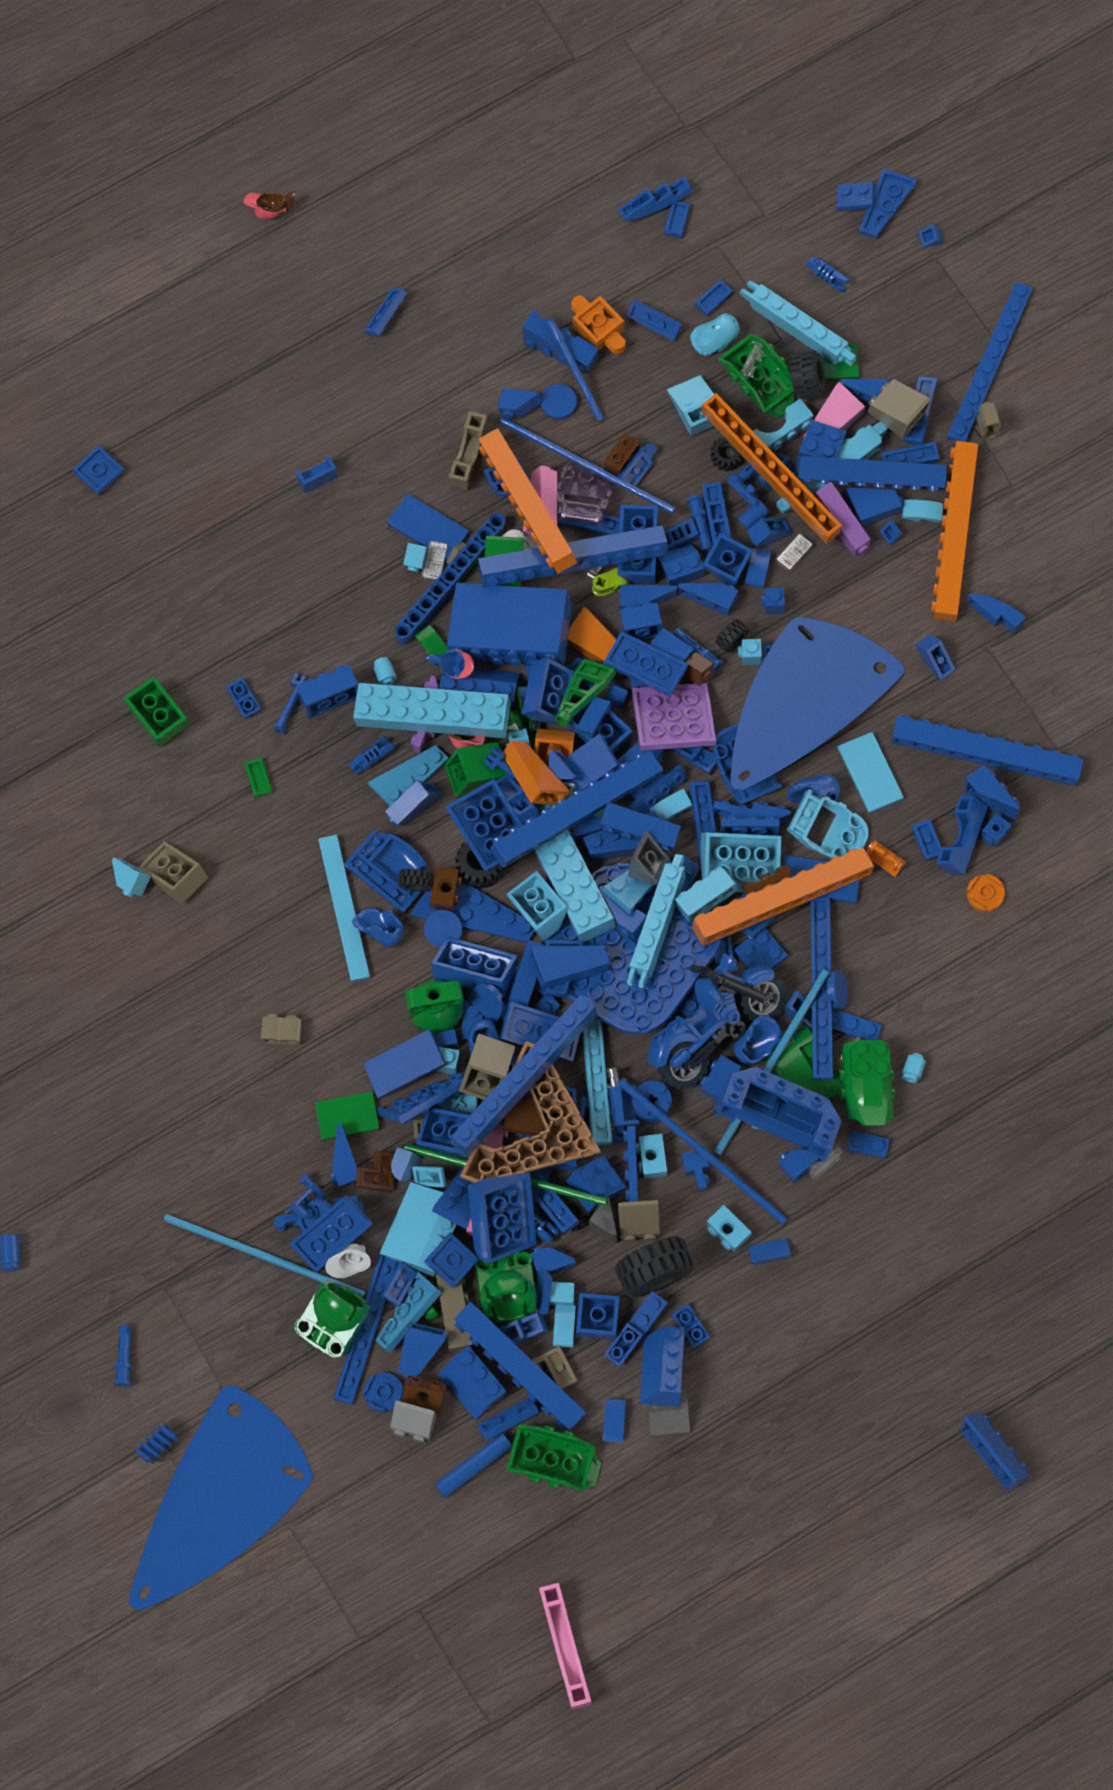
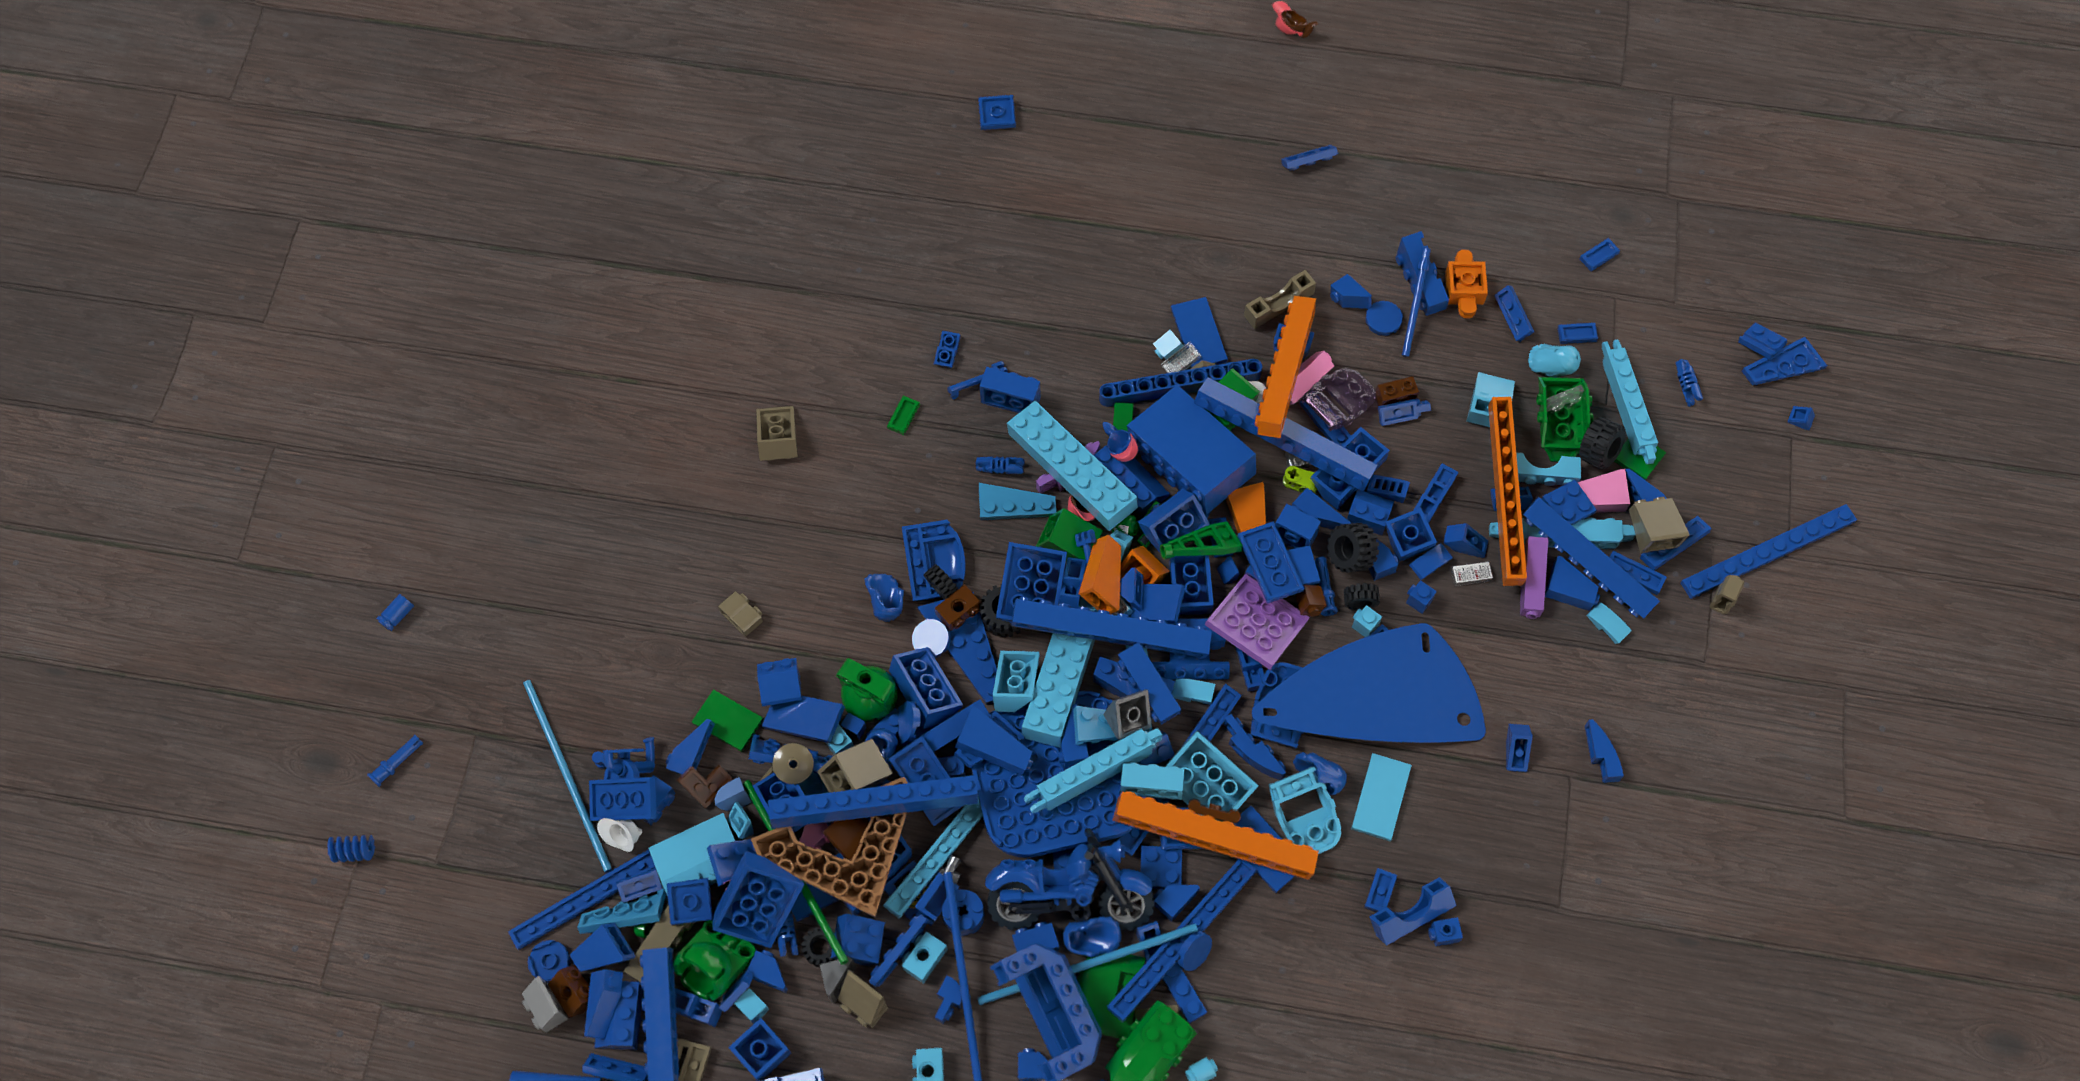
camera: 40 degrees right, 5 degrees down
(129, 877) = (741, 410): medium azure slope -> none
(156, 711) = (873, 308): green brick -> none
(220, 1497) = (358, 934): blue piece -> none
(317, 475) = (1150, 234): blue panel -> none
(333, 1318) = (564, 867): green piece -> none
(343, 908) = (873, 562): medium azure tile -> none
(362, 1054) = (779, 681): none -> blue slope
(384, 671) = (1067, 411): medium azure brick -> none
(413, 802) = (998, 524): slope -> none
(427, 1100) = (793, 752): none -> dark tan dish
(454, 1377) = (602, 1002): none -> blue slope
(553, 1205) = (807, 928): blue plate -> none
(564, 1325) = (729, 1033): medium azure slope -> none
(586, 827) = (1108, 650): blue slope -> none
(591, 467) = (1364, 382): blue piece -> none
(593, 716) = (1192, 569): blue slope -> none
(651, 202) = (1587, 226): blue slope -> none
(654, 1266) = (835, 1050): black tyre -> none
(689, 614) = (1363, 543): none -> black tyre
(698, 515) = (1419, 484): blue pin -> none
(721, 462) = (1474, 460): black tyre -> none
(750, 826) = (1241, 757): blue plate -> none
(756, 509) = (1473, 500): blue piece -> none
(791, 966) = (1174, 899): none -> blue slope
(885, 858) = (1331, 876): orange hinge -> none
(891, 532) = (1566, 619): blue slope -> none
(955, 533) = (1622, 661): orange brick -> none
(985, 893) = (1392, 976): orange tile -> none
(987, 750) = (1497, 860): blue brick -> none
(992, 793) = (1465, 887): blue slope -> none

